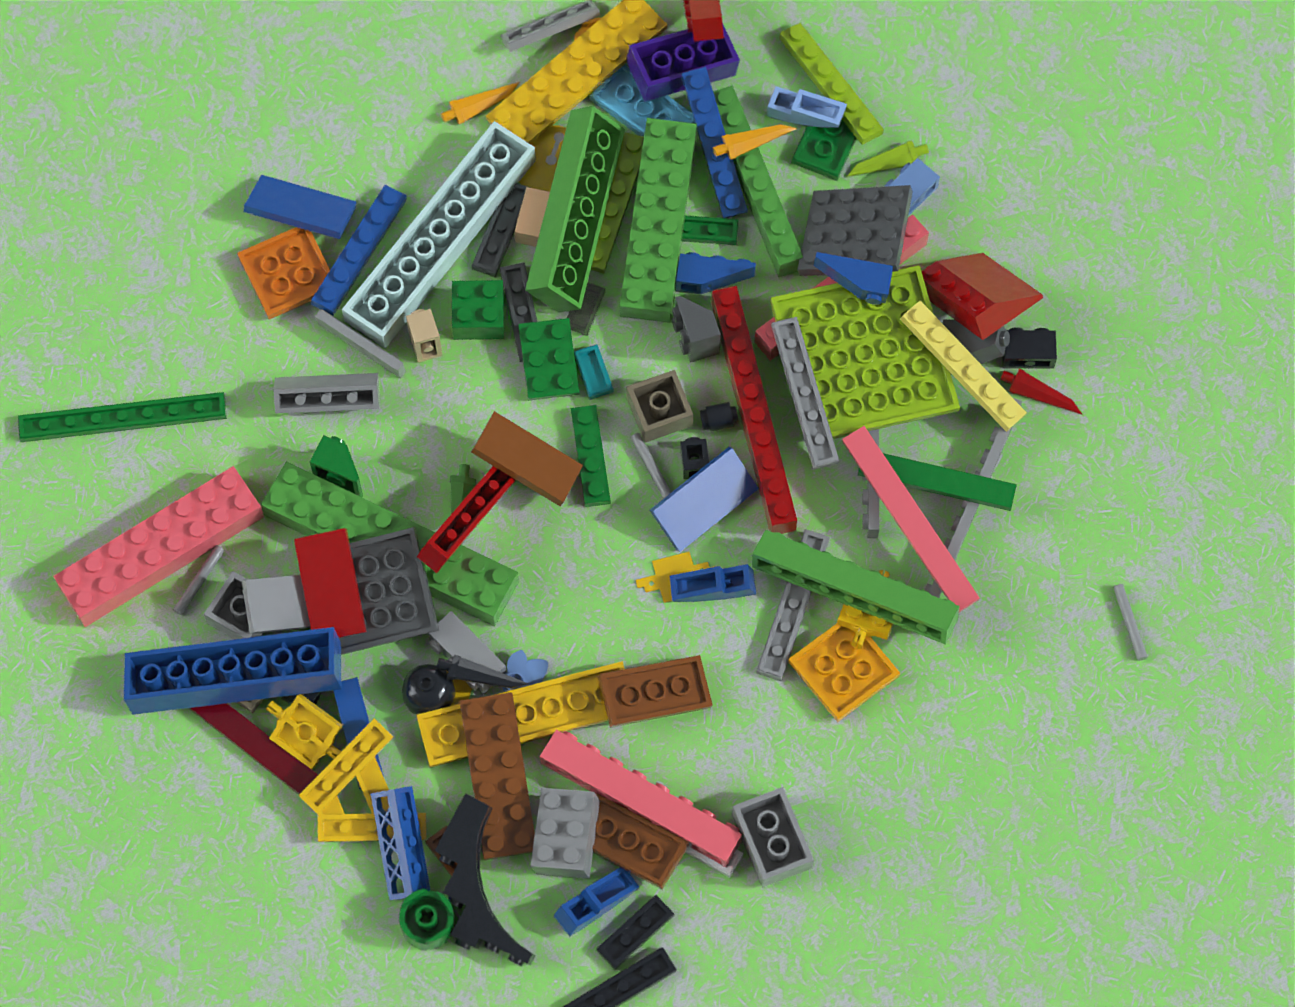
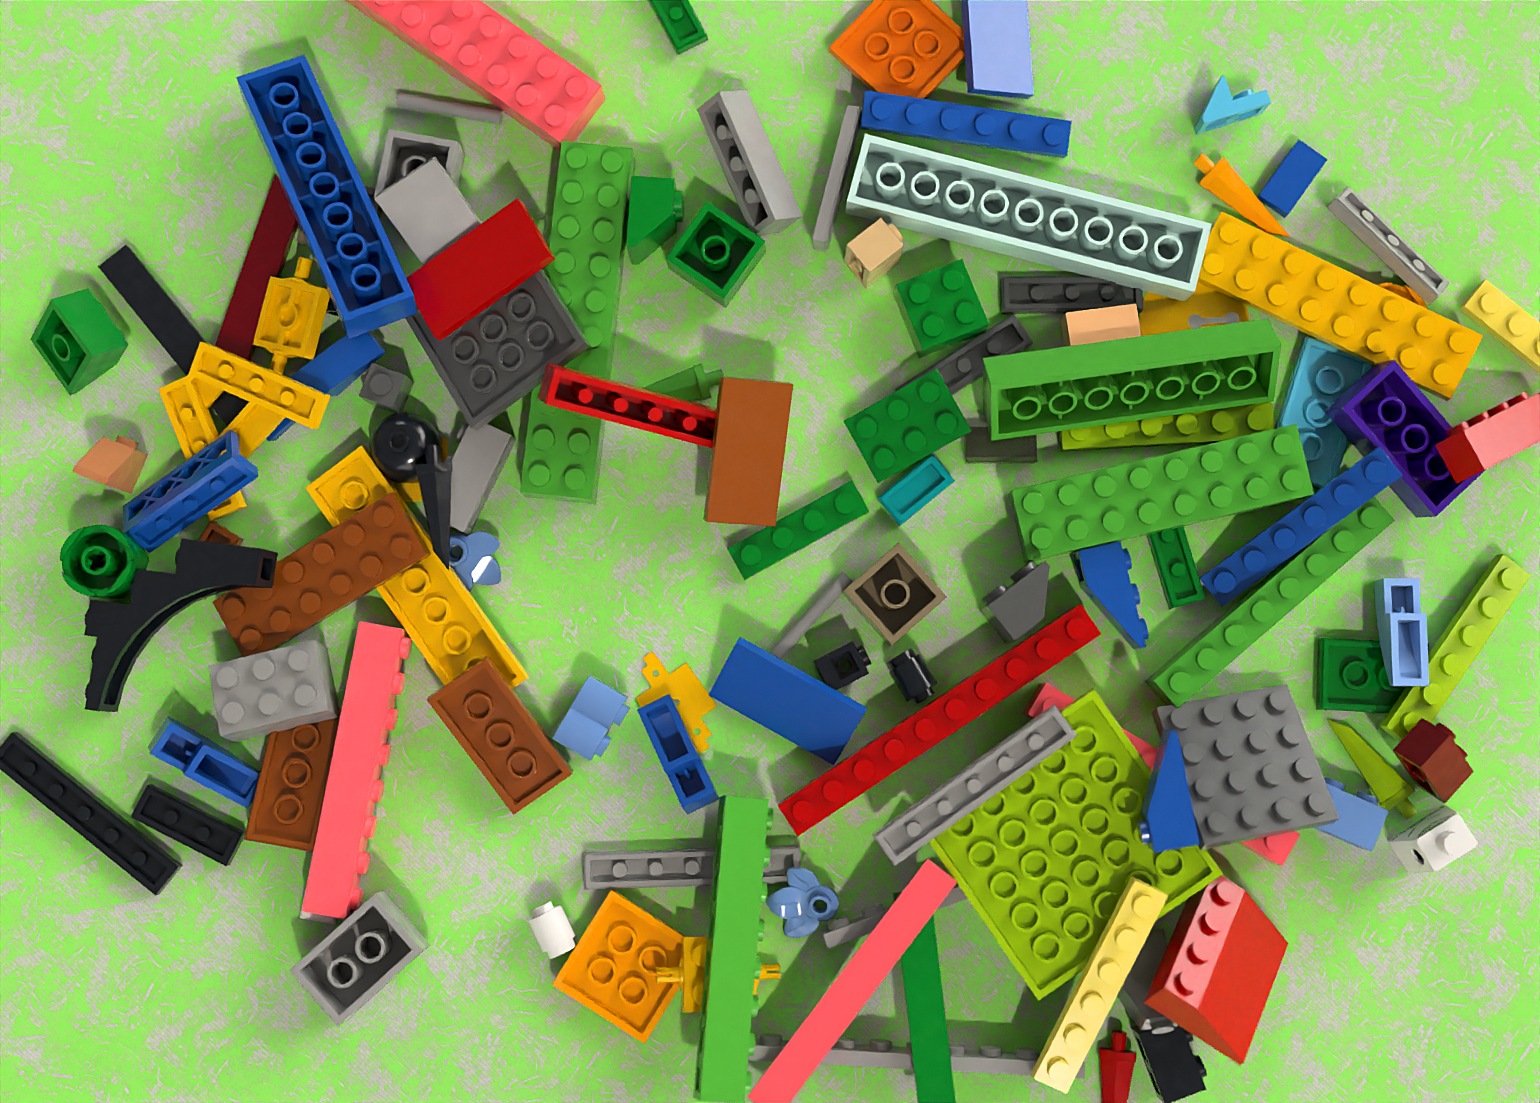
camera: 70 degrees right, 15 degrees up
(258, 888) = (78, 340): none -> green slope
(273, 824) = (162, 319): none -> black tile
(359, 889) = (113, 463): none -> nougat slope
(381, 436) = (716, 254): none -> green brick
(382, 686) = (386, 388): none -> dark grey brick
(416, 89) = (1223, 110): none -> medium azure slope
(481, 66) = (1291, 178): none -> blue tile
(666, 631) = (591, 718): none -> medium blue brick
(742, 142) = (1315, 569): light orange bar -> none
(801, 707) = (552, 929): none -> white brick
(843, 543) = (797, 902): none -> medium blue plate
(895, 120) = (1434, 759): none -> dark red brick
(947, 134) = (1437, 838): none -> white torso

